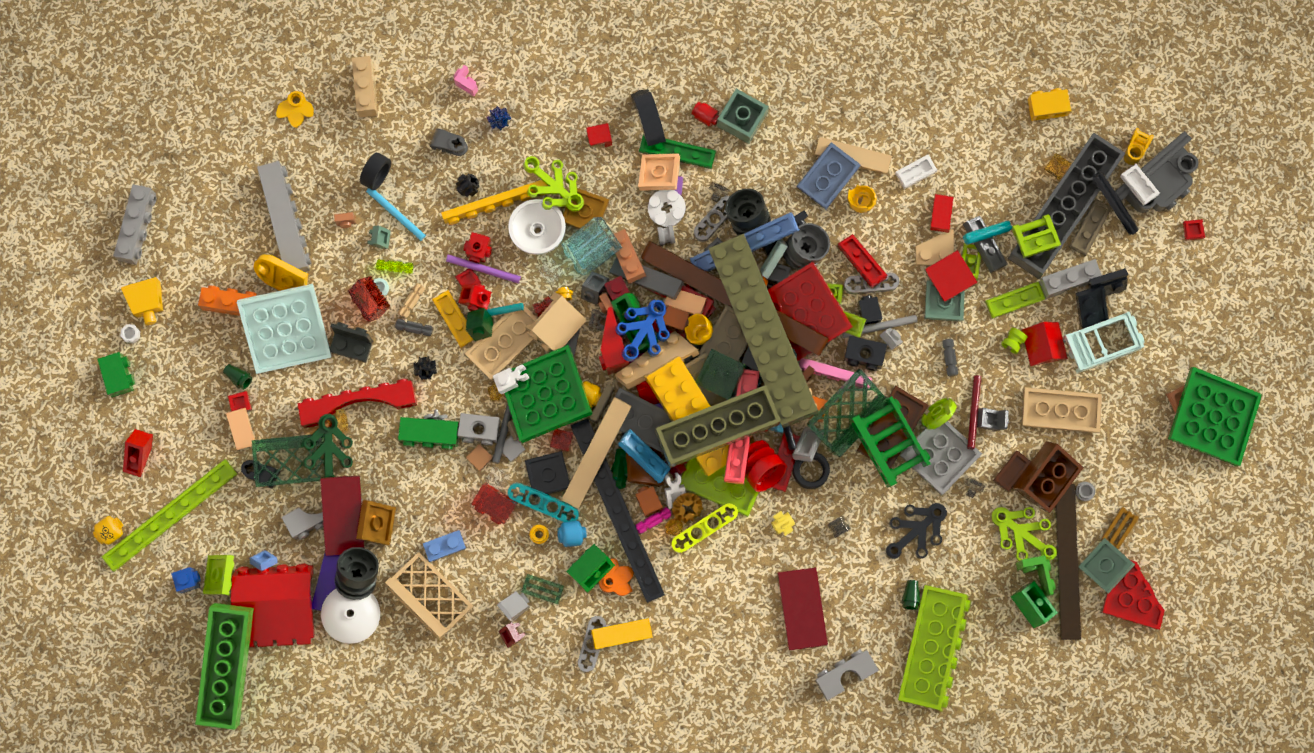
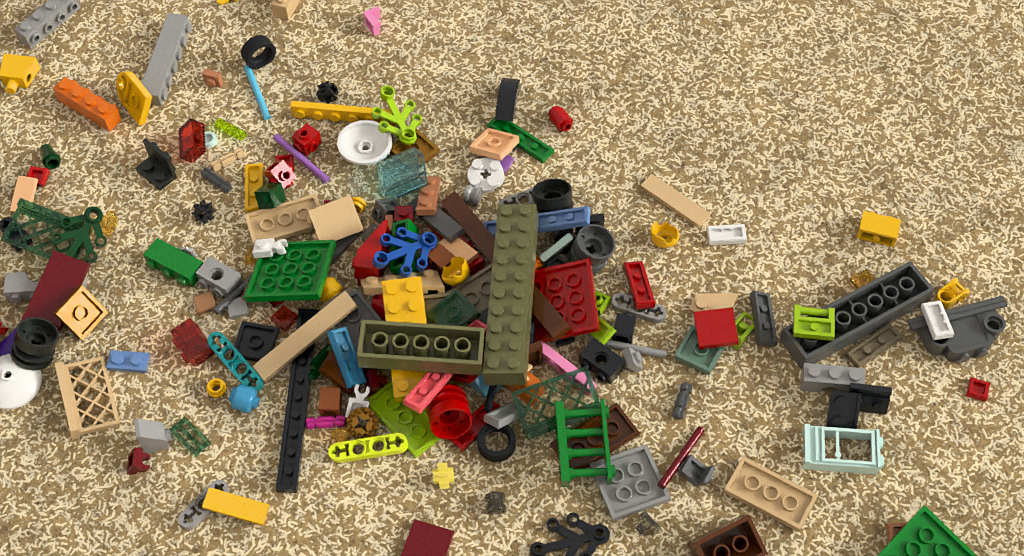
camera: 25 degrees right, 20 degrees down
(284, 328) = (107, 131): light aqua plate -> none
(380, 237) = (232, 102): sand green tile -> none
(398, 395) = (168, 223): red arch -> none
(446, 142) = (332, 58): dark grey piece -> none
(498, 118) = (379, 57): clear blue gear -> none
(506, 309) = (300, 194): teal bar -> none
(590, 568) = (242, 434): green brick -> none
(599, 135) = (461, 97): red panel -> none
(619, 577) = (264, 456): orange plate -> none
(719, 190) = (536, 177): clear smoke tile -> none
(742, 116) = (590, 130): sand green brick -> none
(828, 176) = (643, 206): sand blue tile -> none
(939, 413) = (644, 440): lime tile -> none
(941, 213) = (733, 276): red tile -> none
(987, 232) = (768, 306): teal axle -> none
(1012, 471) = (693, 528): reddish brown tile -> none
(1014, 340) = (752, 410): lime wheel -> none
(1015, 300) = (770, 378): lime tile -> none
(1044, 343) = (782, 426): red slope -> none
(1115, 203) = (906, 329): black axle -> none

